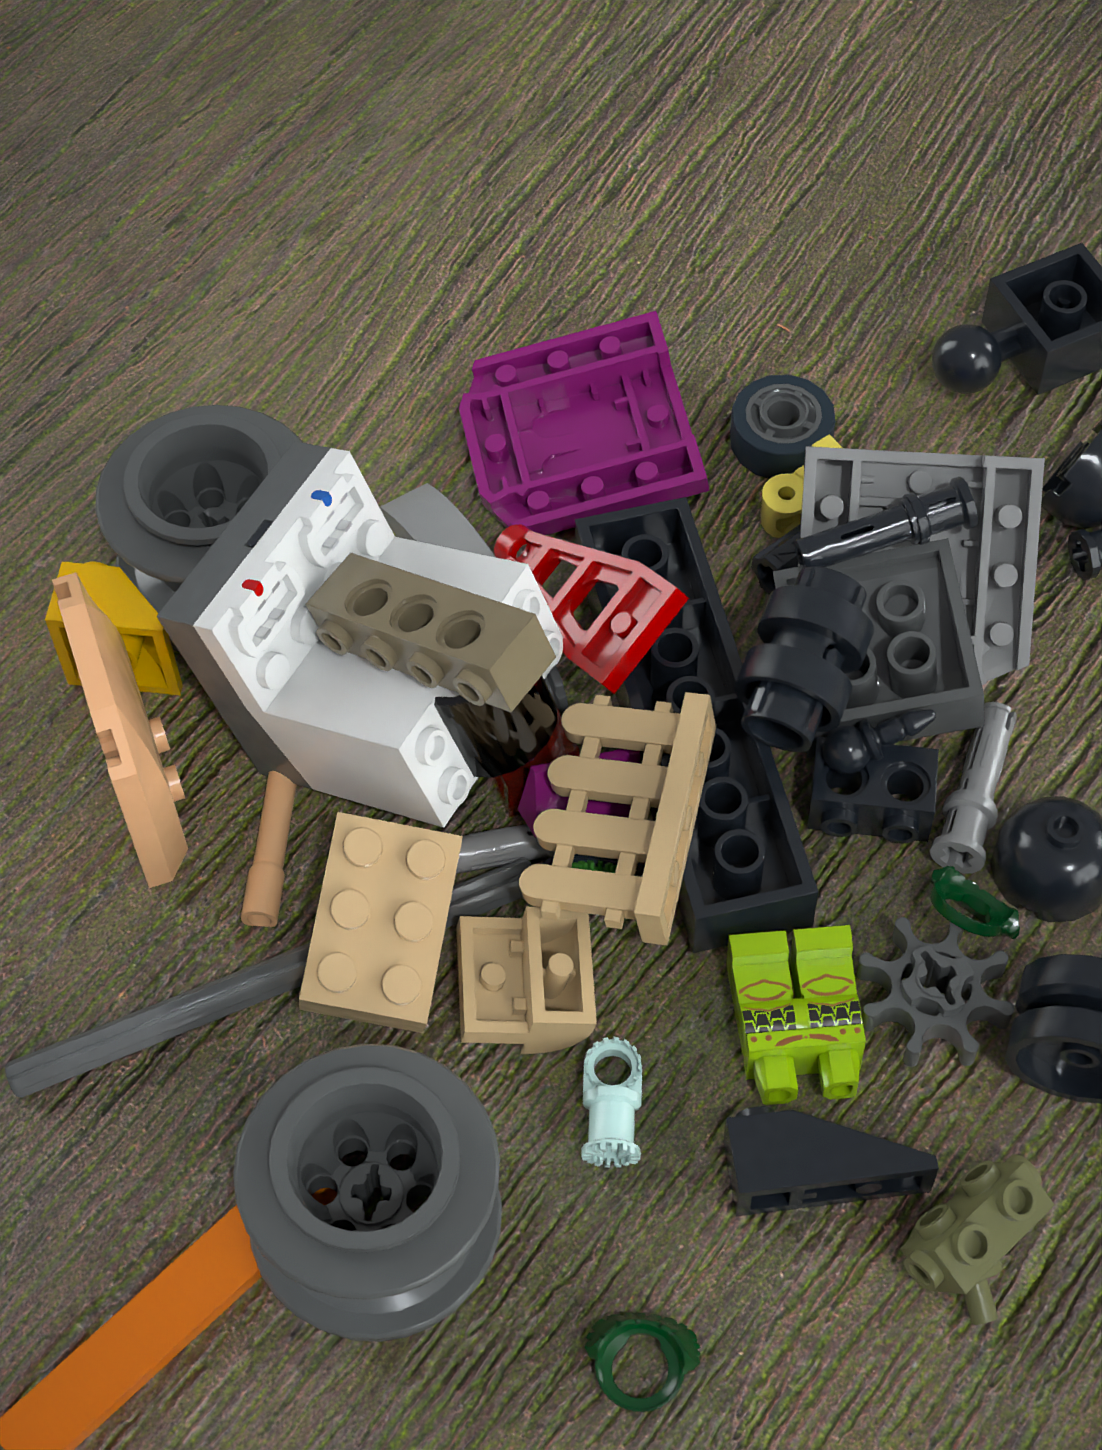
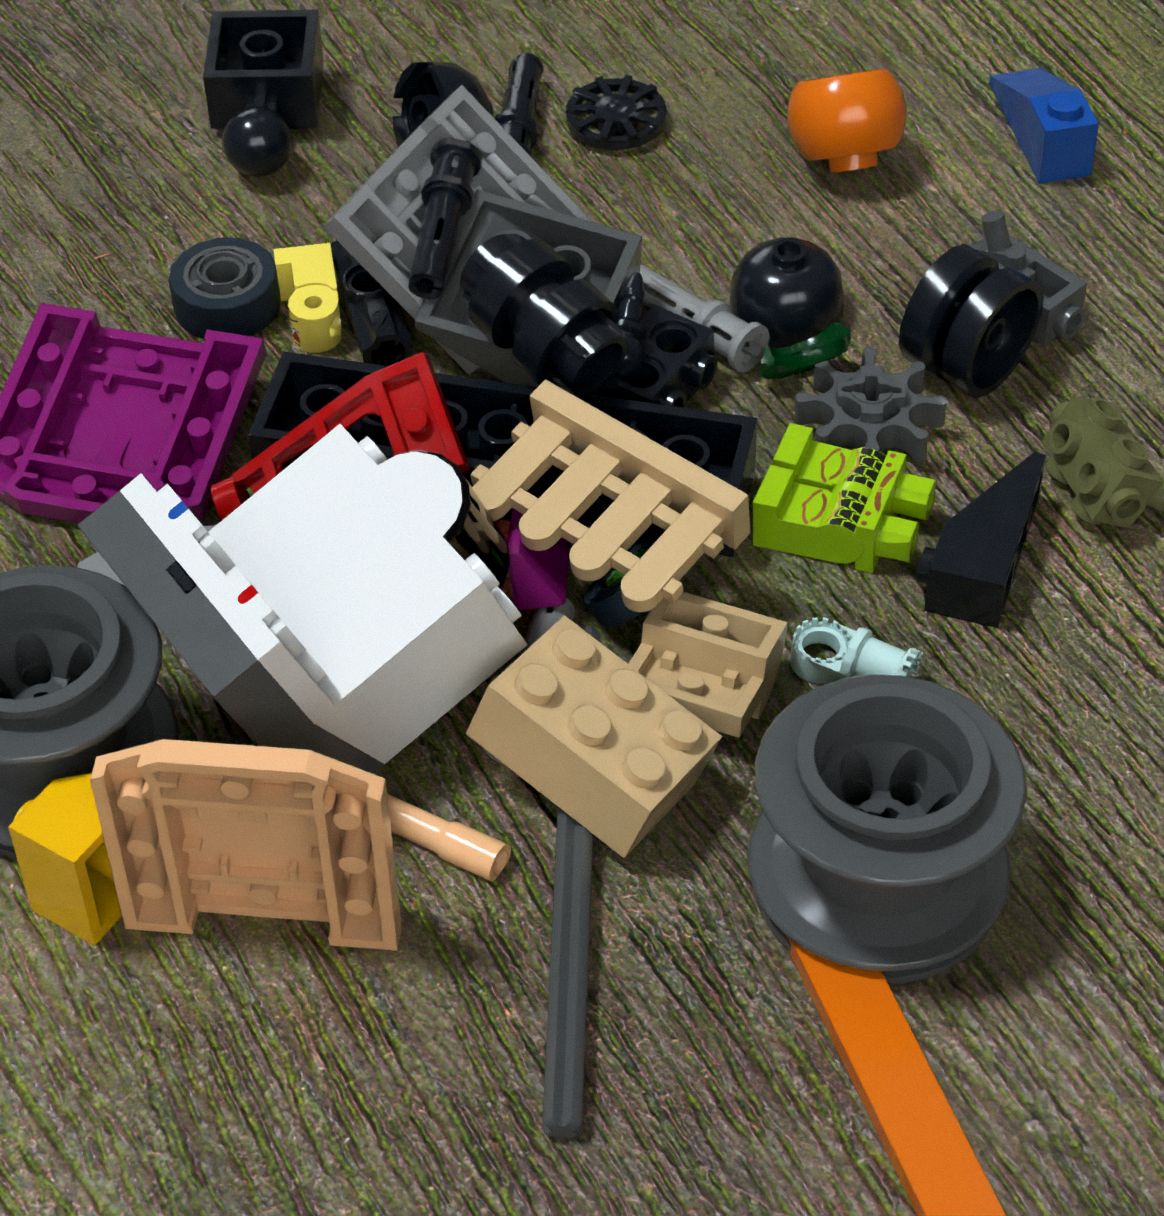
camera: 65 degrees left, 10 degrees down
(431, 632) = (375, 505): dark tan brick -> none
(676, 1344) = (1113, 702): dark green piece -> none

